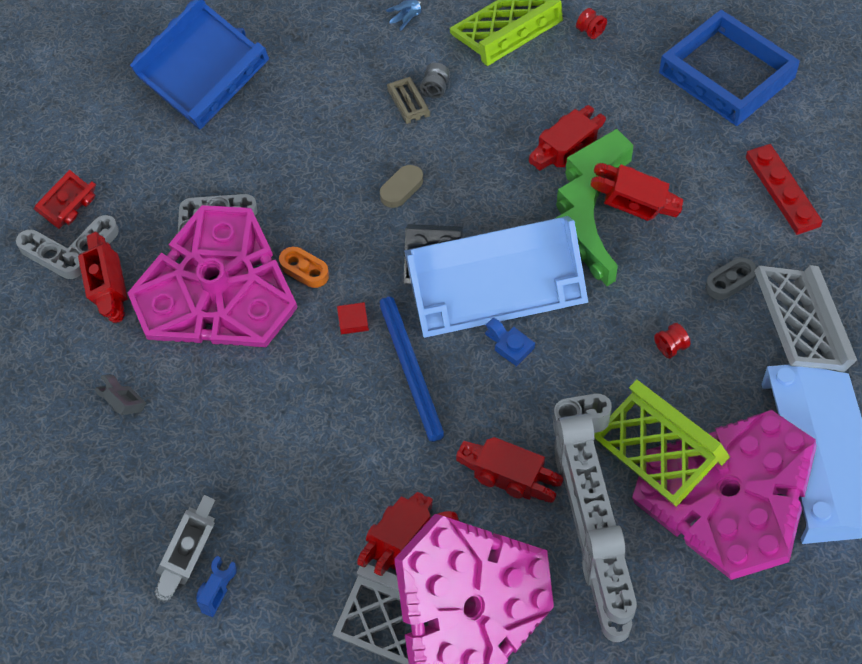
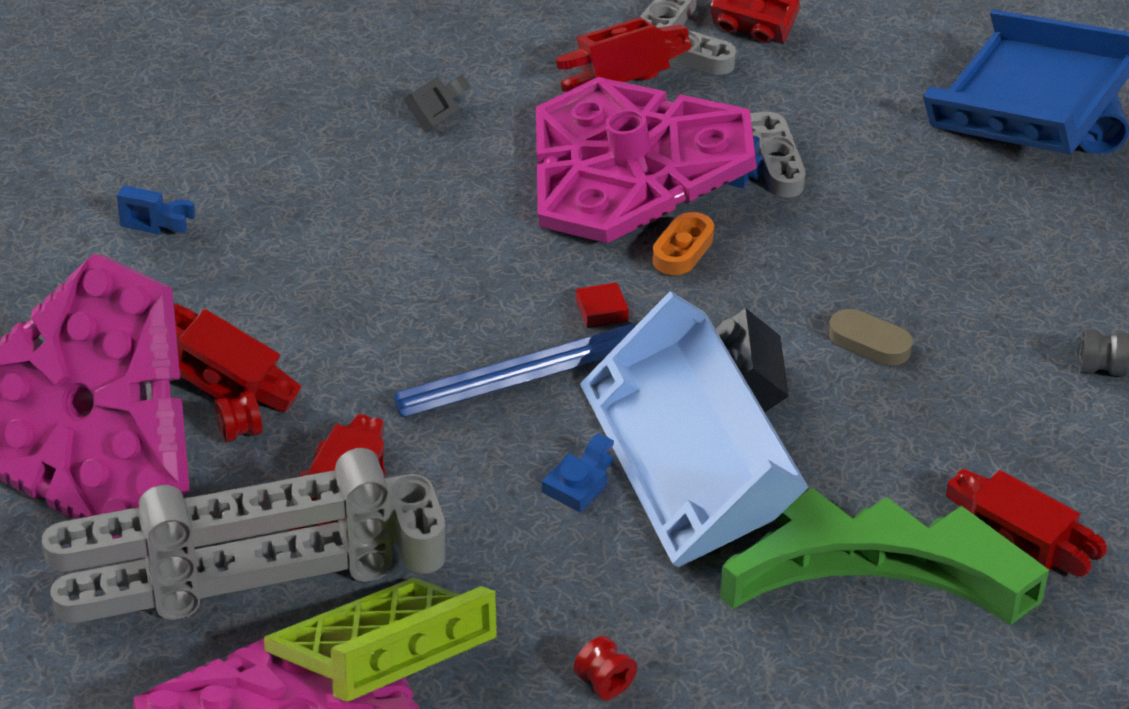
camera: 80 degrees right, 15 degrees down
(184, 549) = (204, 172): light grey hinge -> none
(414, 114) = (1062, 338): dark tan tile -> none
(635, 192) = (909, 608): red hinge -> none

